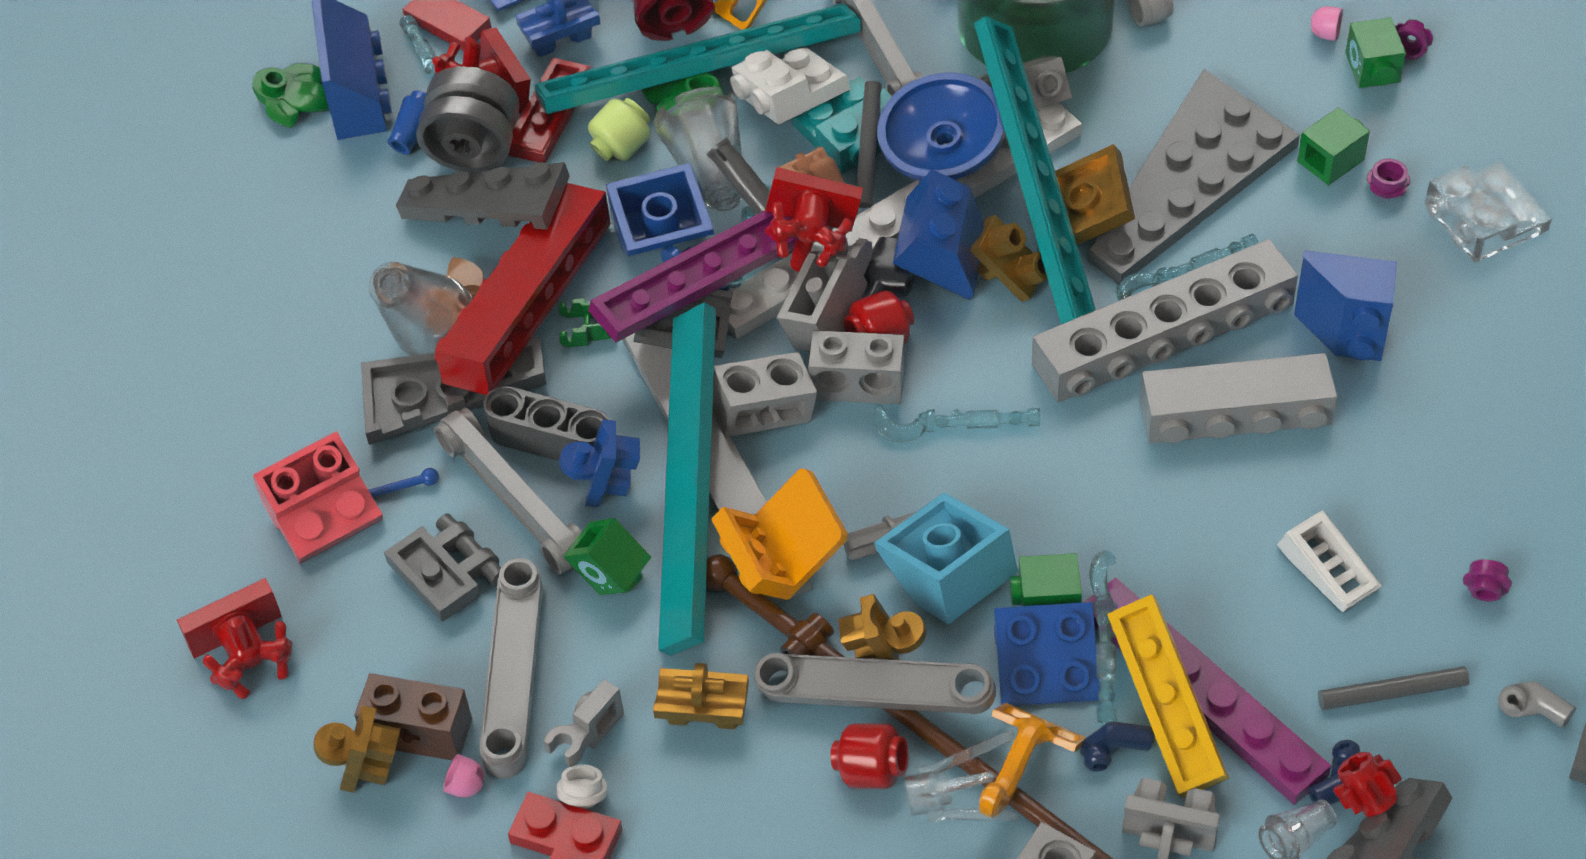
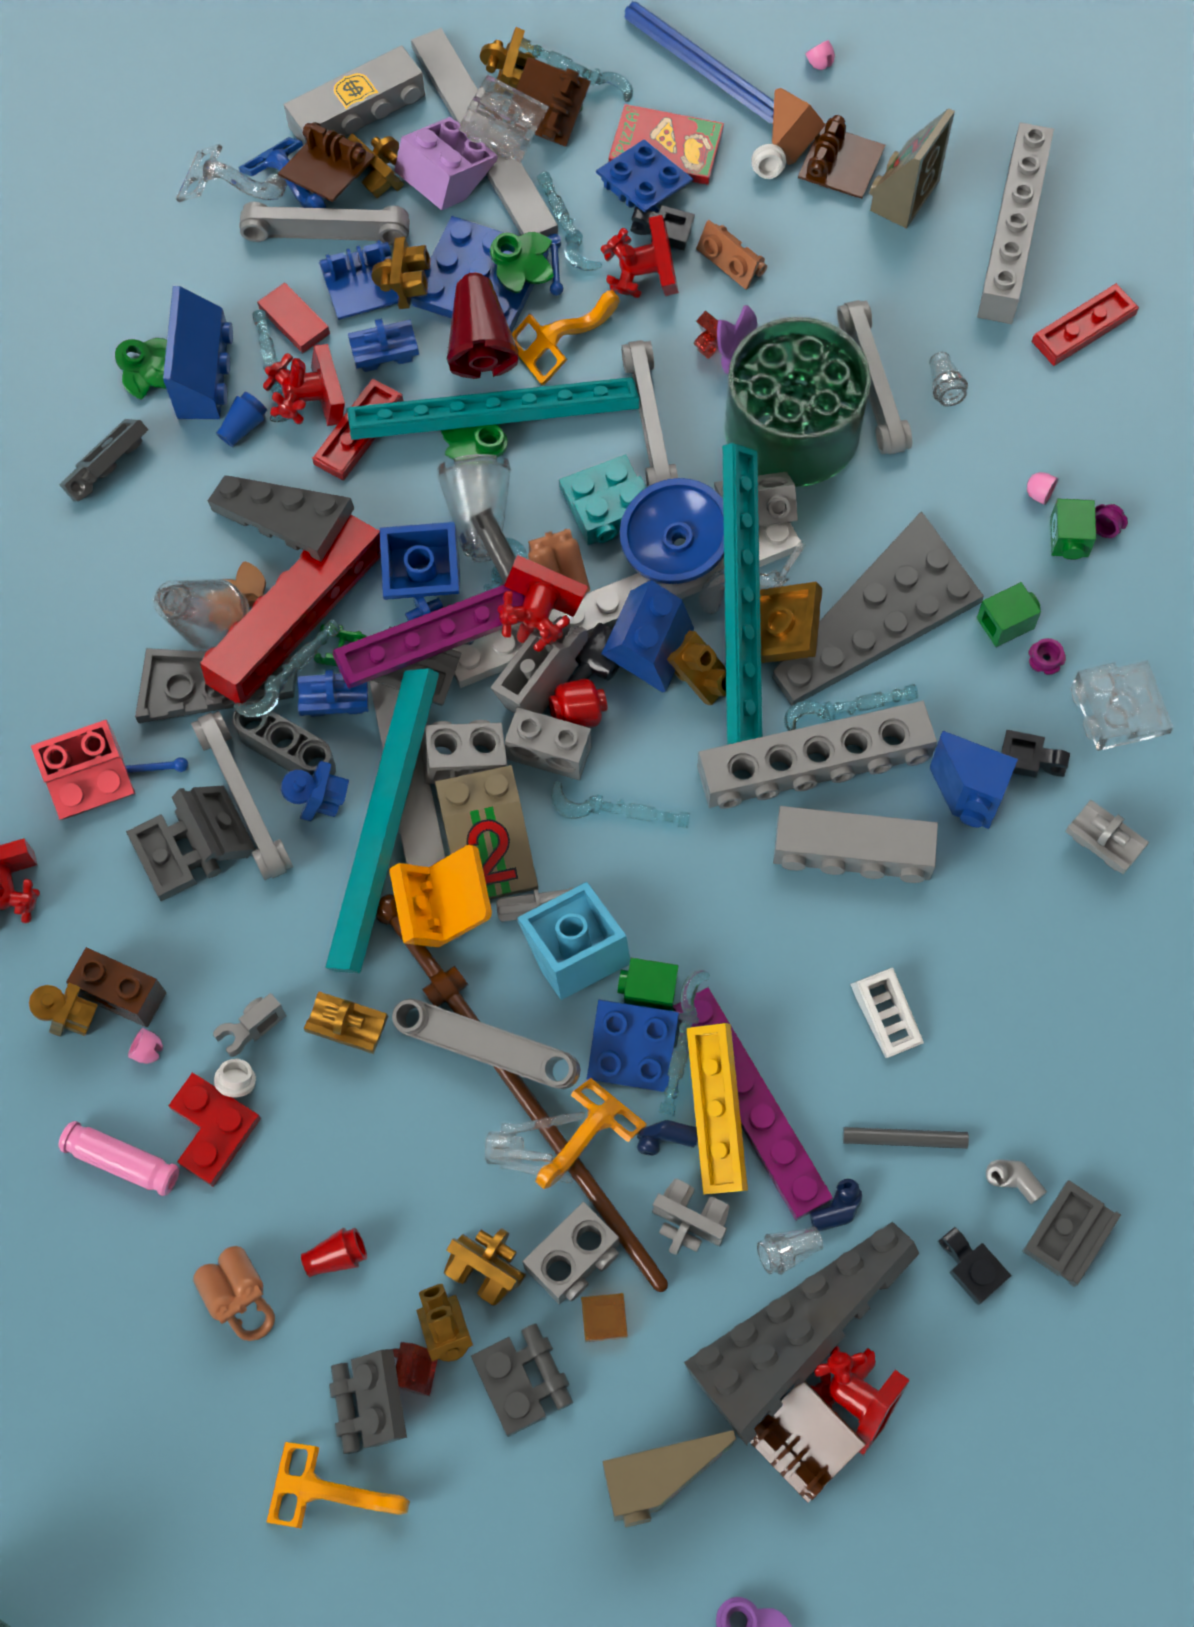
camera: 10 degrees right, 15 degrees up
(261, 189) = (102, 458): none -> dark grey hinge
(468, 119) = (282, 434): flat silver wheel -> none
(487, 522) = (213, 823): none -> dark grey plate
(511, 668) = (205, 957): light grey piece -> none
(524, 362) = (275, 683): none -> clear light blue piece
(593, 366) = (330, 695): none -> blue hips
(608, 557) = (301, 879): green brick -> none
(619, 129) = (409, 465): yellowish green head -> none
(787, 84) = (561, 451): white plate -> none
(811, 437) = (488, 814): none -> dark tan slope
(868, 141) = (611, 530): dark grey bar -> none
(870, 756) = (467, 1105): red head -> none
(879, 636) = (501, 1004): pearl gold hips -> none
(997, 184) = (713, 588): none -> clear piece
(1367, 784) = (852, 1228): red gear -> none
(1411, 276) = (1032, 755): none -> black plate
(1487, 580) = (1011, 1059): magenta plate -> none
(1517, 334) = (1107, 837): none -> light grey hips
(1522, 808) = (976, 1269): none -> black plate

